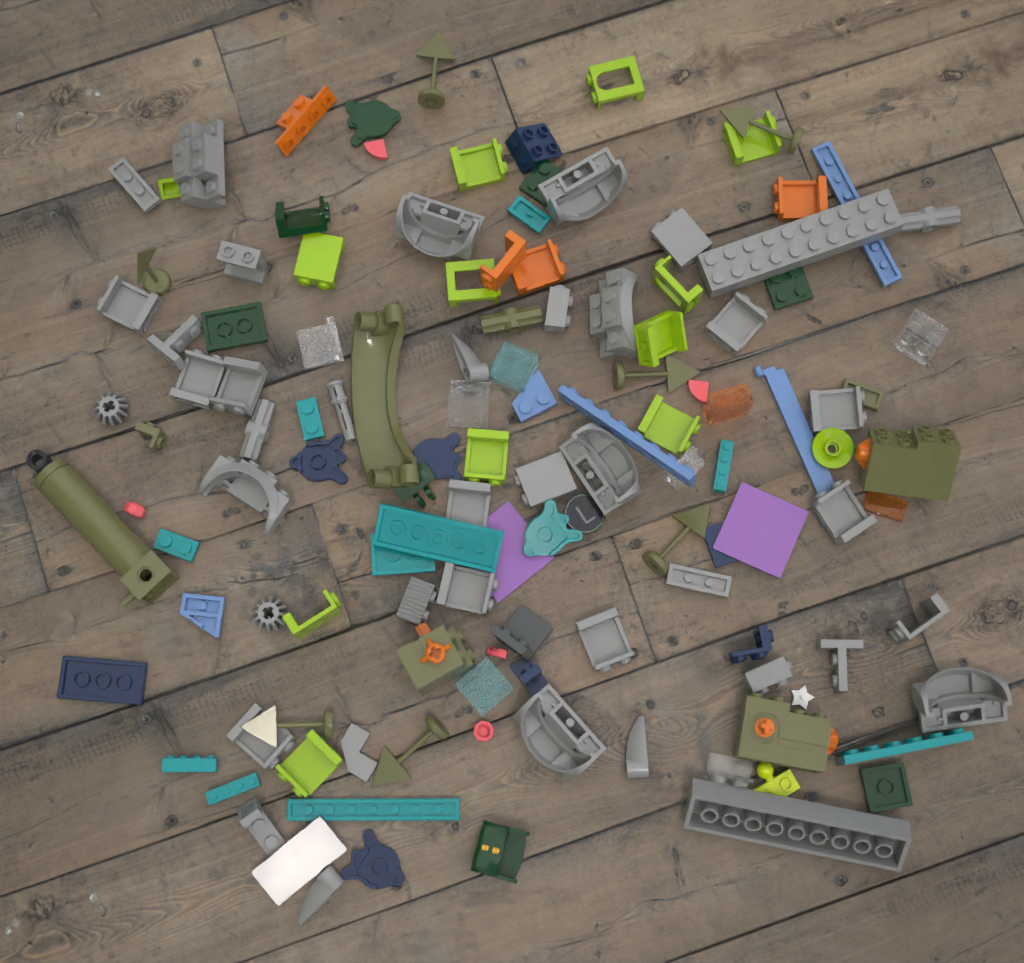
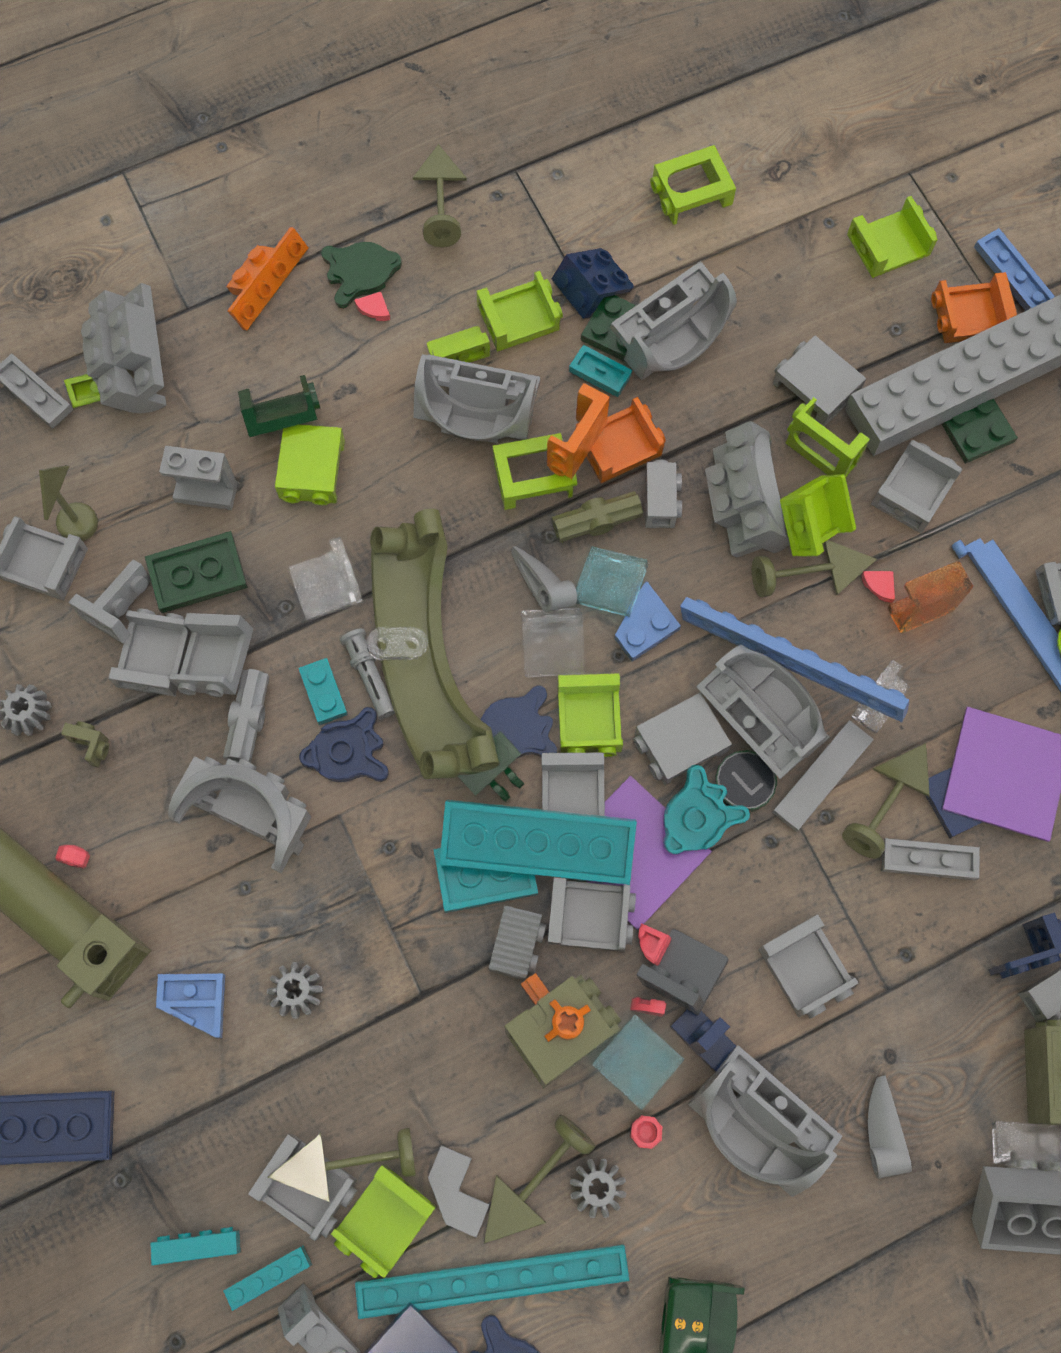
camera: 10 degrees left, 5 degrees down
(176, 545) = (141, 902): teal plate -> none
(302, 630) = (345, 1011): lime panel -> none
(362, 393) = (395, 641): none -> clear plate
(433, 186) = (461, 346): none -> lime panel
(443, 767) = (591, 1198): none -> light grey gear
(506, 613) = (653, 943): none -> coral tile
(637, 516) = (822, 776): none -> light grey tile
(668, 427) = (848, 639): lime panel -> none
(722, 466) = (934, 688): teal piece -> none
(742, 118) = (877, 211): olive piece -> none

